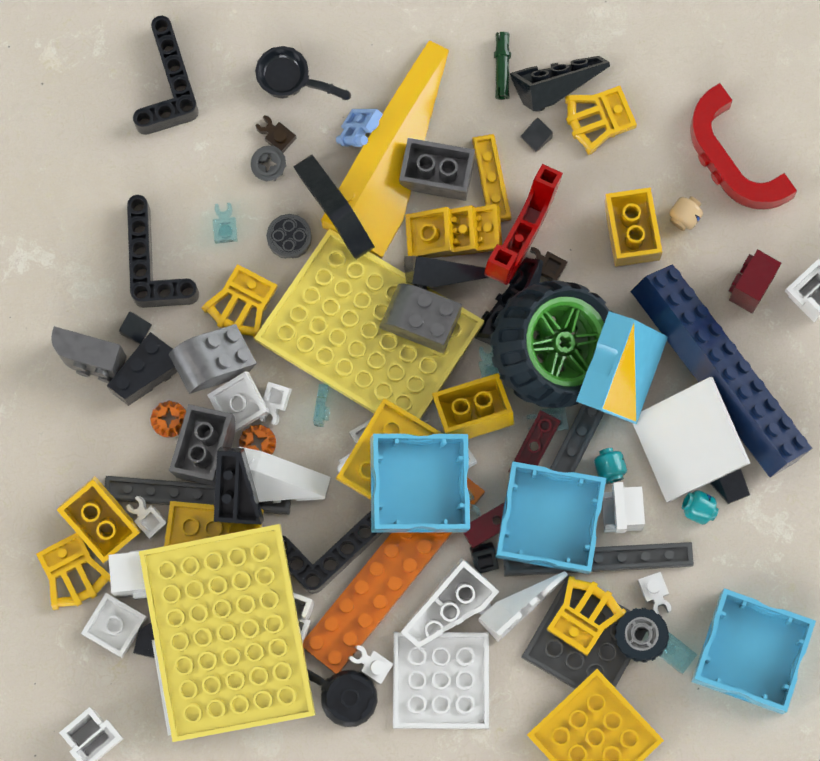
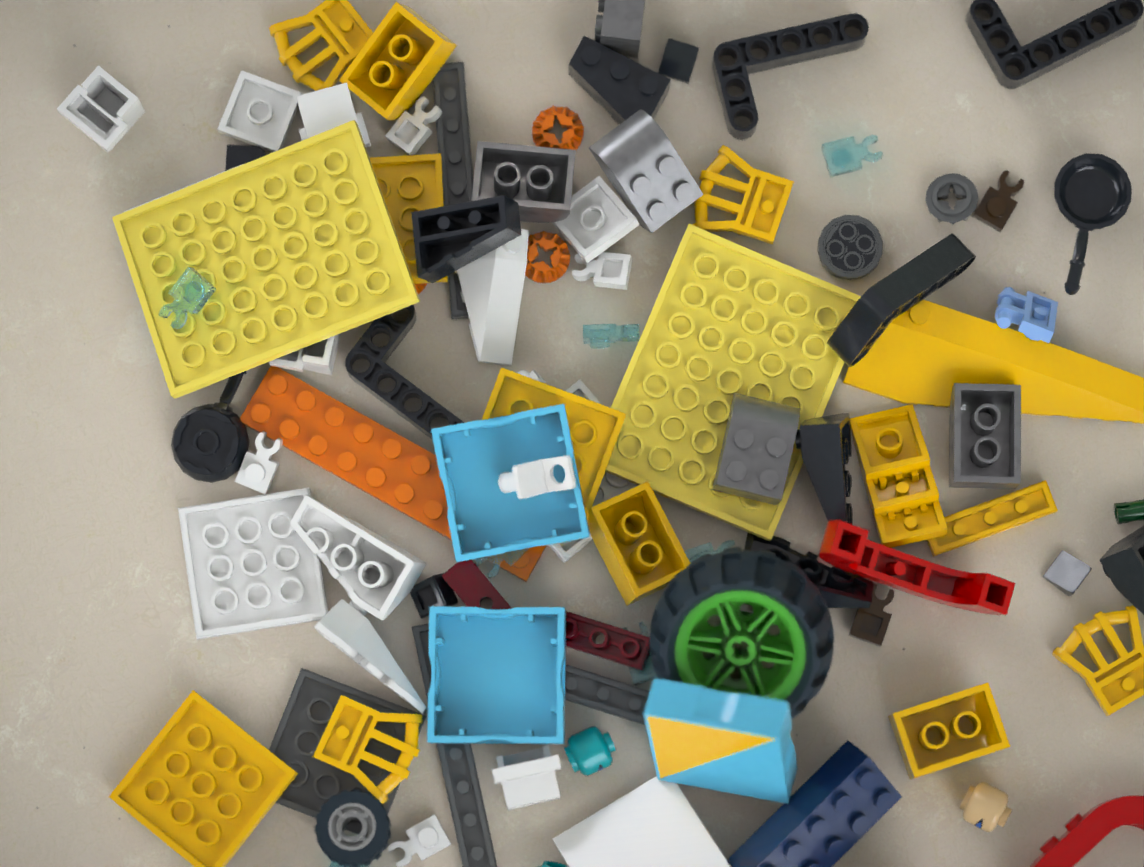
camera: 75 degrees right, 5 degrees up
(243, 689) = (189, 295): none -> clear light blue plate
(420, 462) = (537, 477): none -> white bracket

